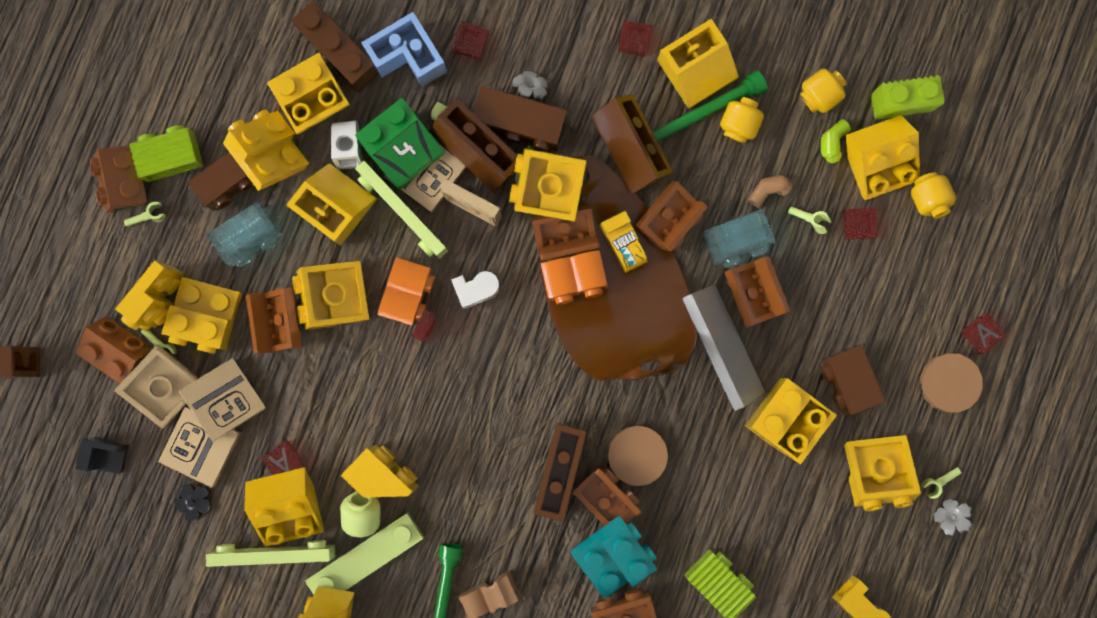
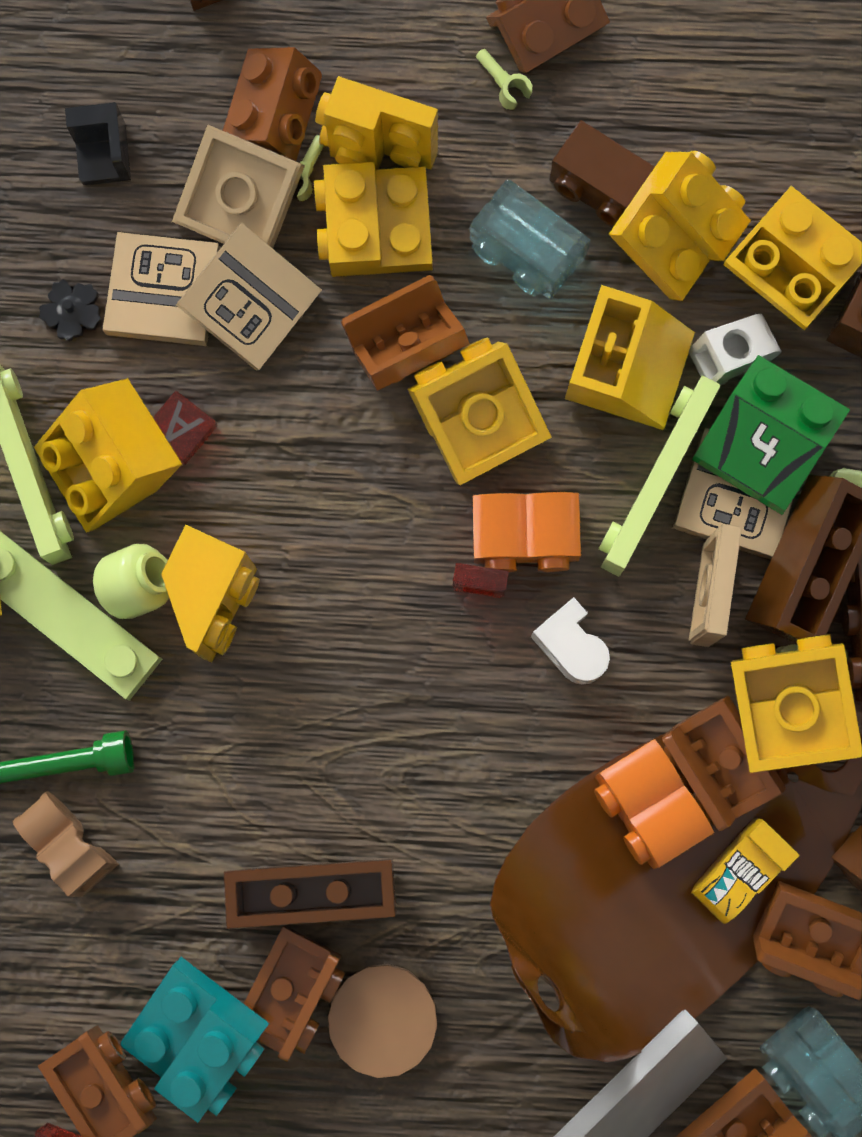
camera: 75 degrees right, 5 degrees down
(166, 153) = (614, 74): lime brick -> none

